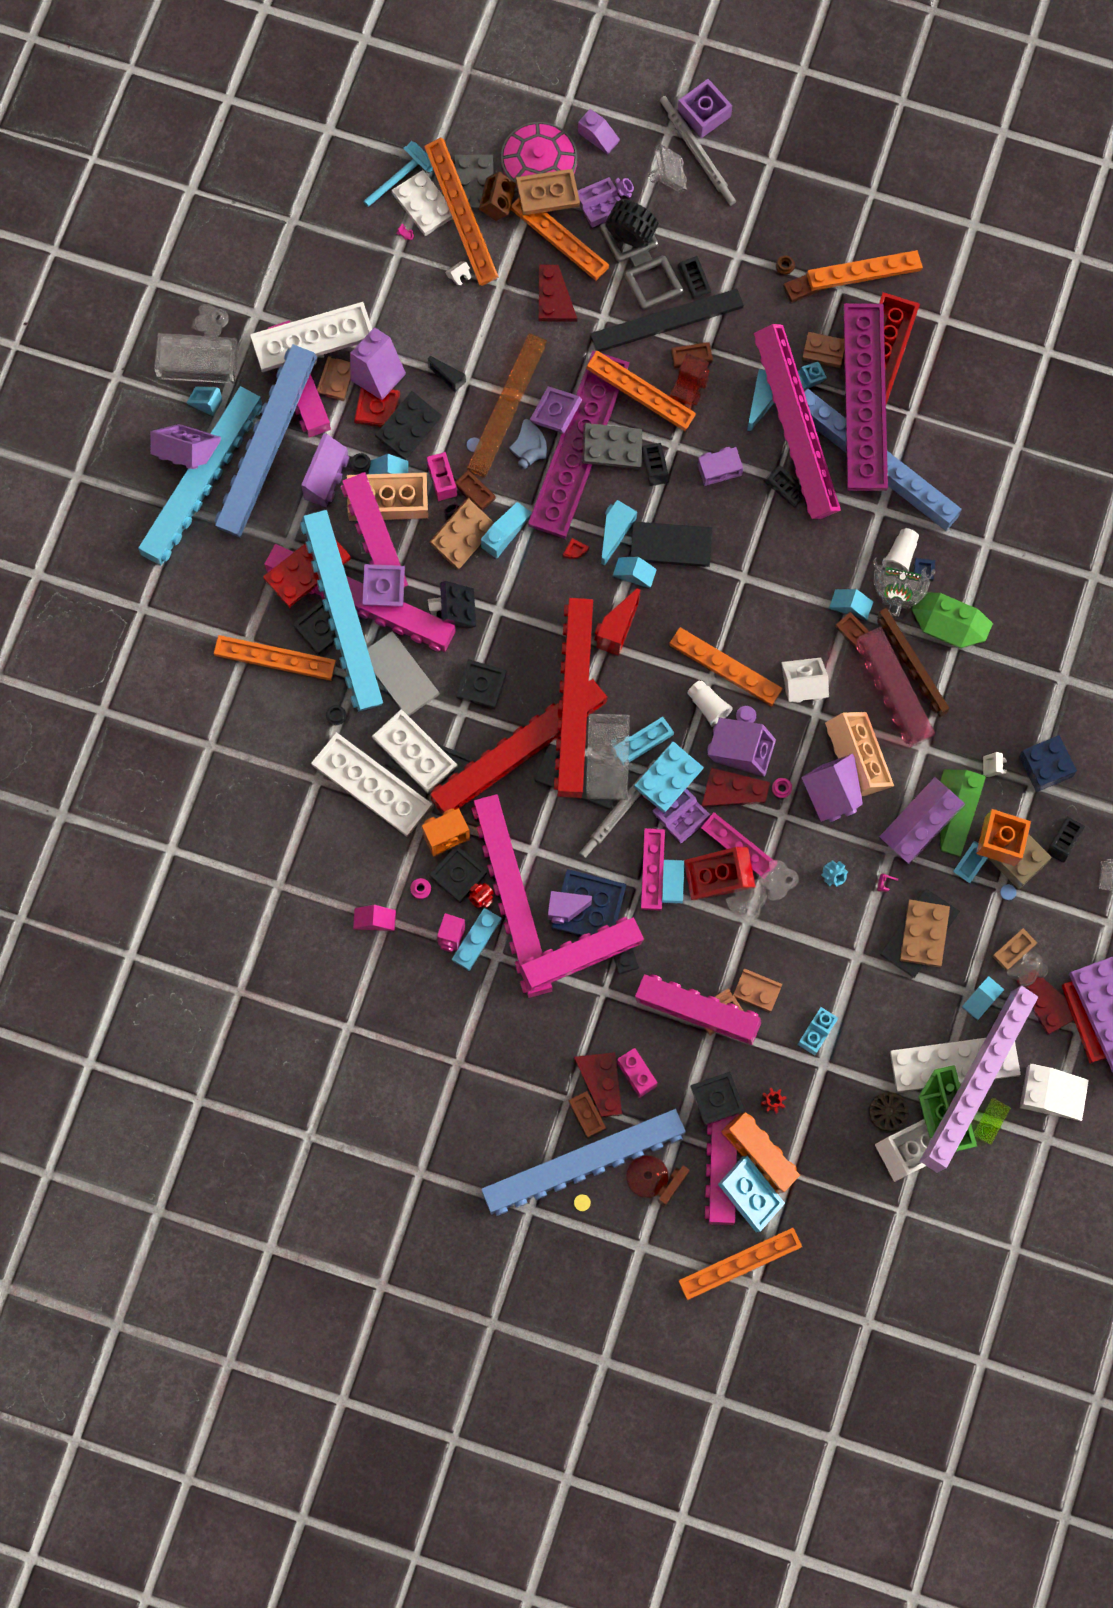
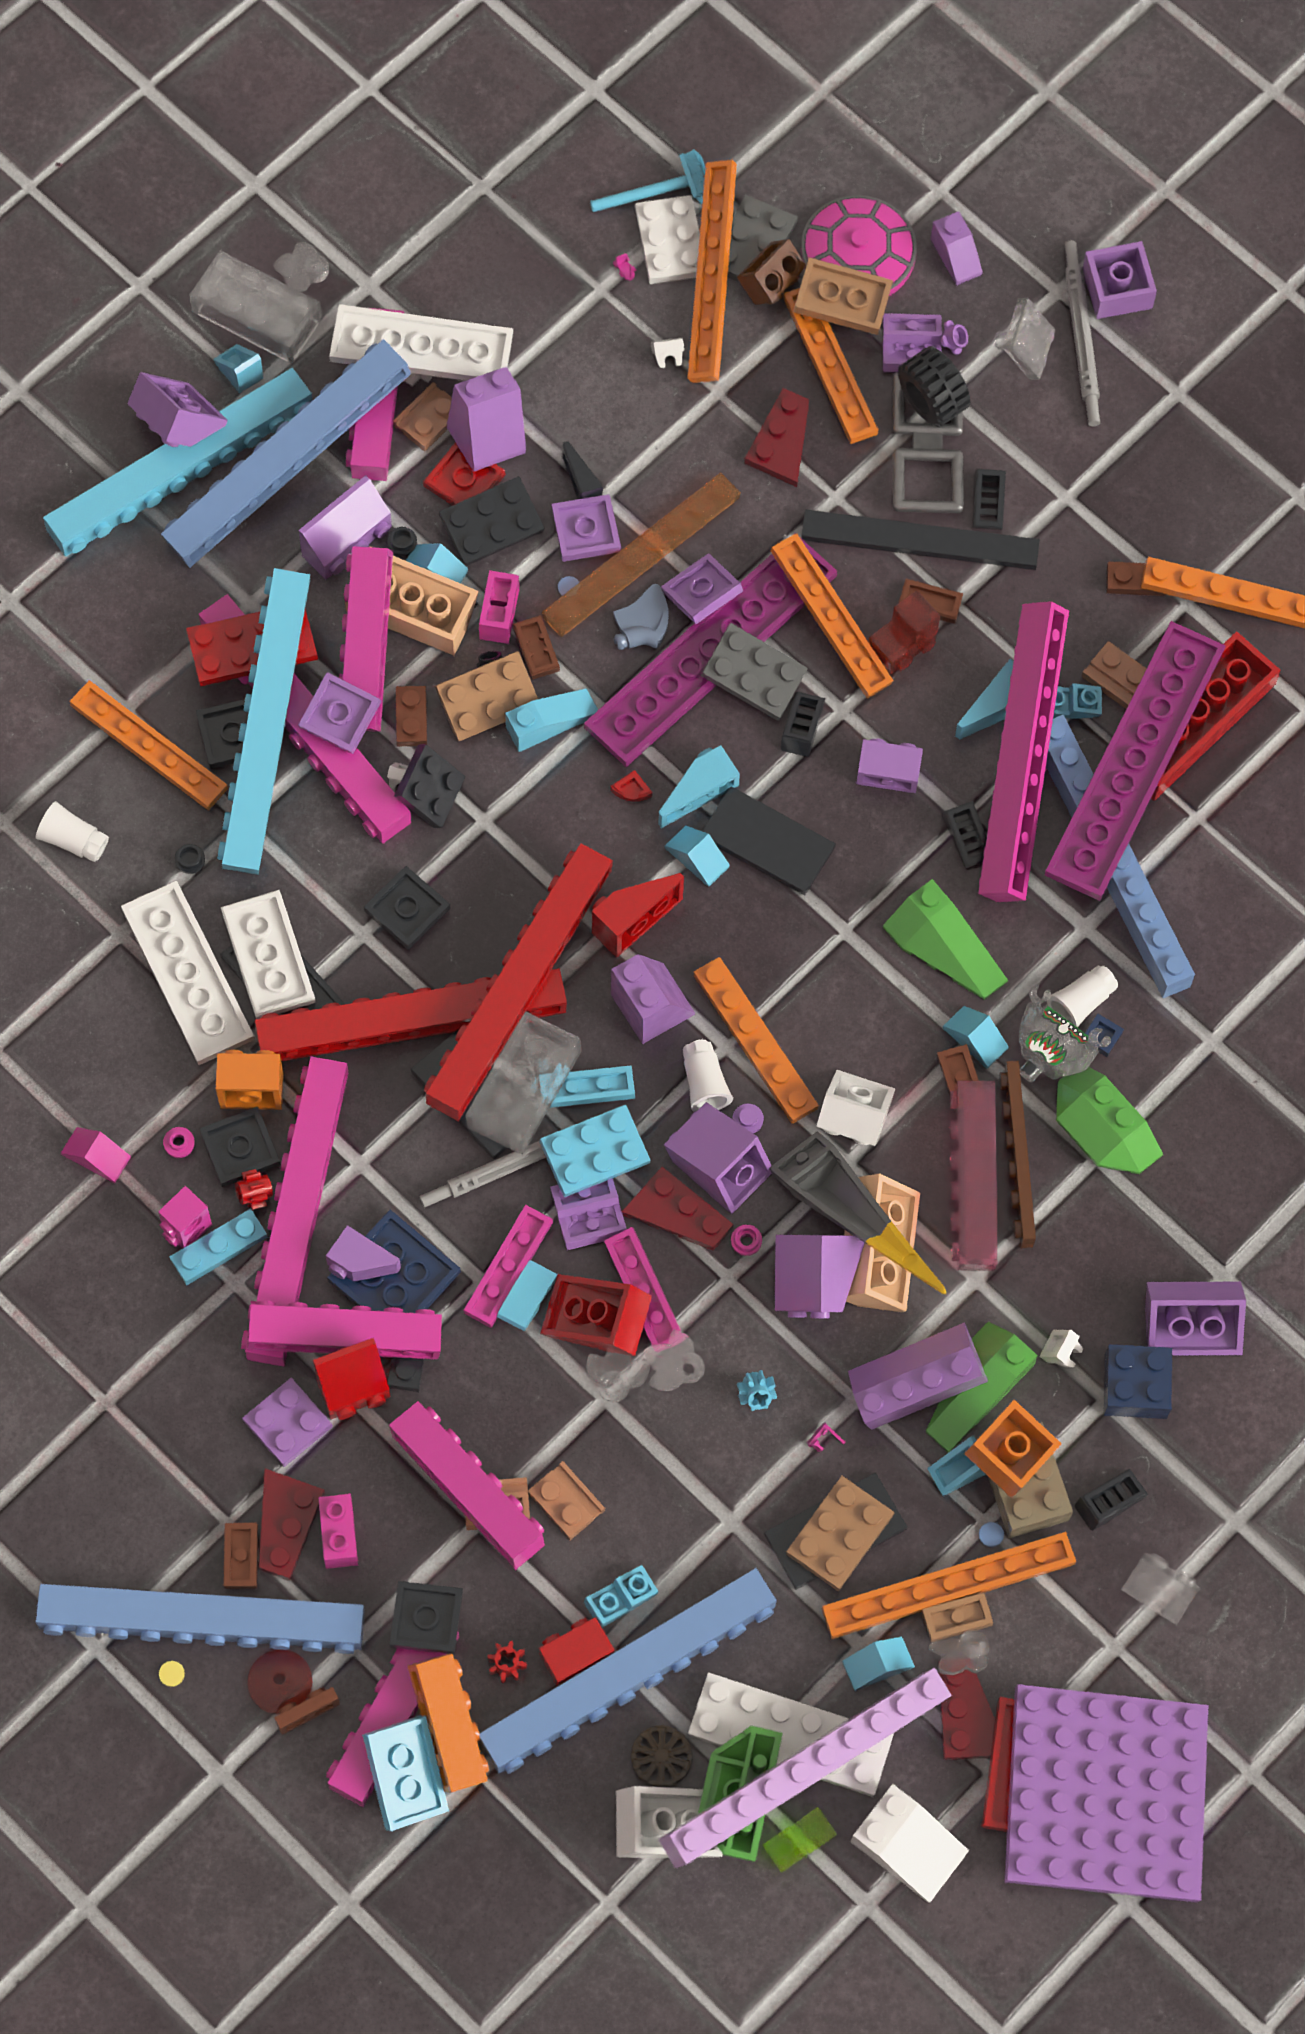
camera: 25 degrees right, 5 degrees down
(258, 733) = (71, 833): none -> white plant
(401, 674) = (305, 844): light grey tile -> none
(422, 566) = (411, 715): none -> copper plate
(466, 404) = (586, 528): none -> medium lavender plate
(572, 1023) = (287, 1422): none -> medium lavender plate
(600, 981) = (352, 1379): none -> red slope
(652, 672) = (648, 997): none -> medium lavender slope
(740, 1264) = (342, 1864): orange plate -> none
(785, 260) = (1127, 531): reddish brown plate -> none
(801, 554) = (939, 935): none -> bright green wedge
(810, 1075) = (576, 1650): none -> red brick
(815, 733) = (827, 1183): none -> dark grey plate
(845, 1071) = (627, 1671): none -> medium blue brick
(1000, 933) = (948, 1585): none -> orange plate
(1061, 710) = (1196, 1317): none -> medium lavender slope

